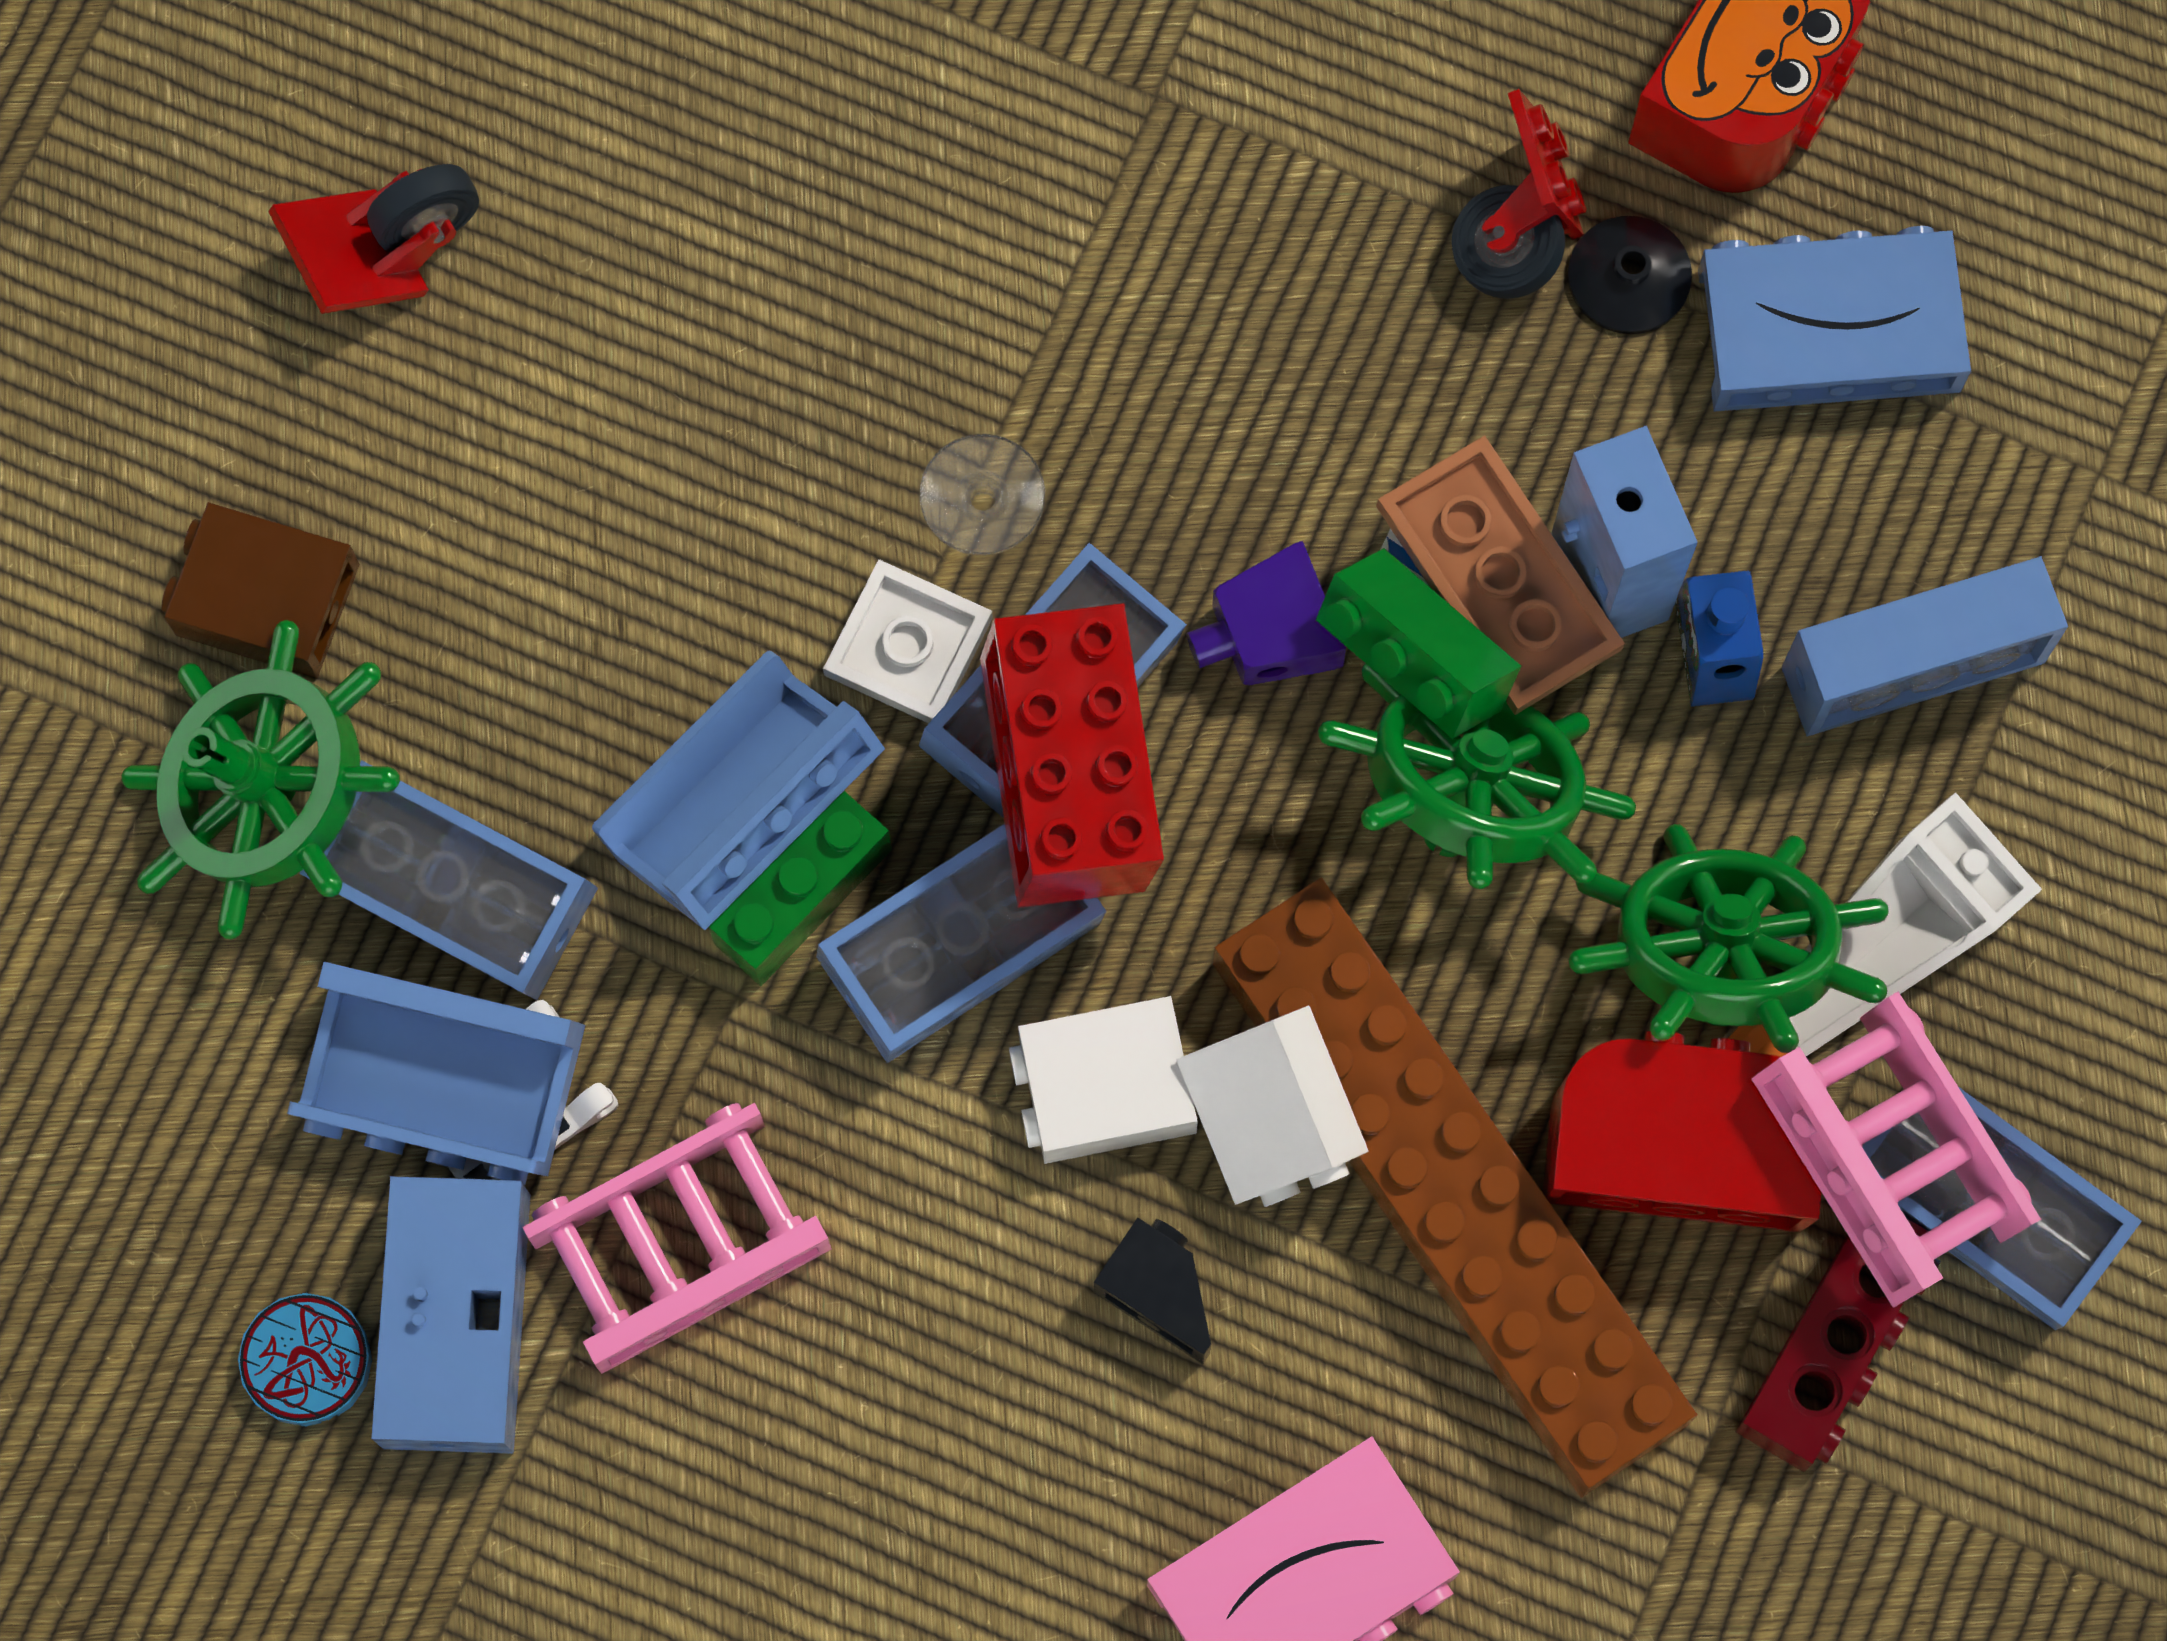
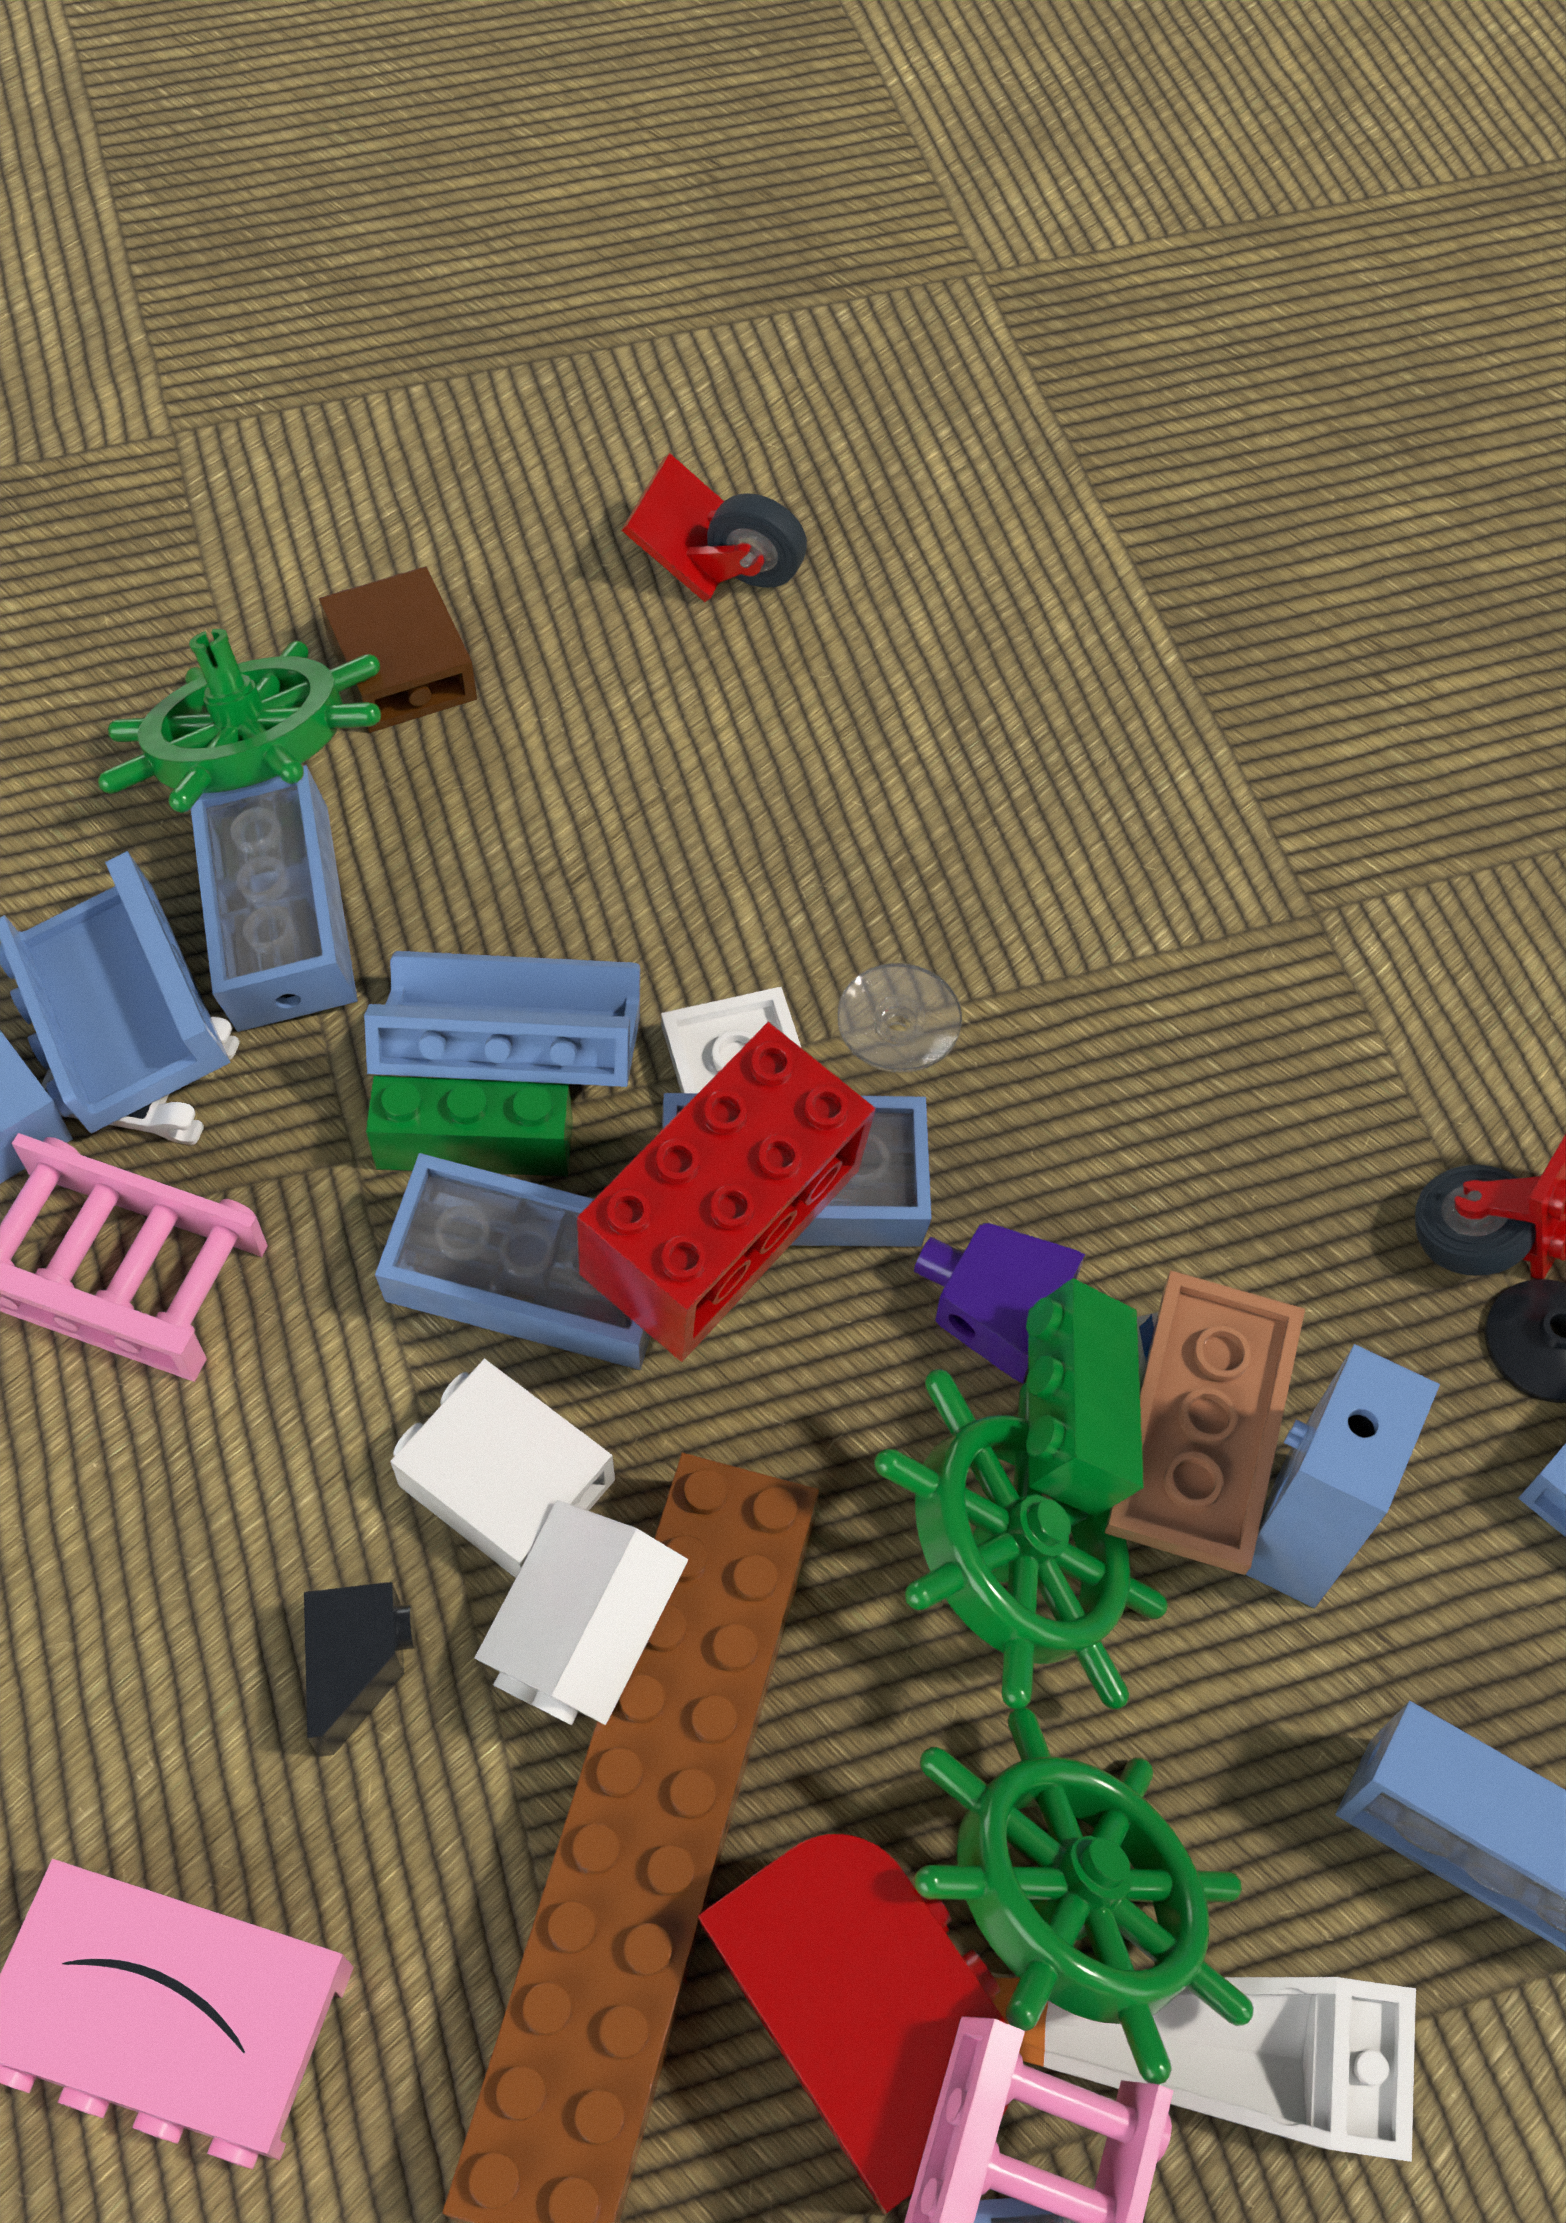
camera: 45 degrees right, 15 degrees down
(1719, 630) = (1344, 1646): blue torso -> none

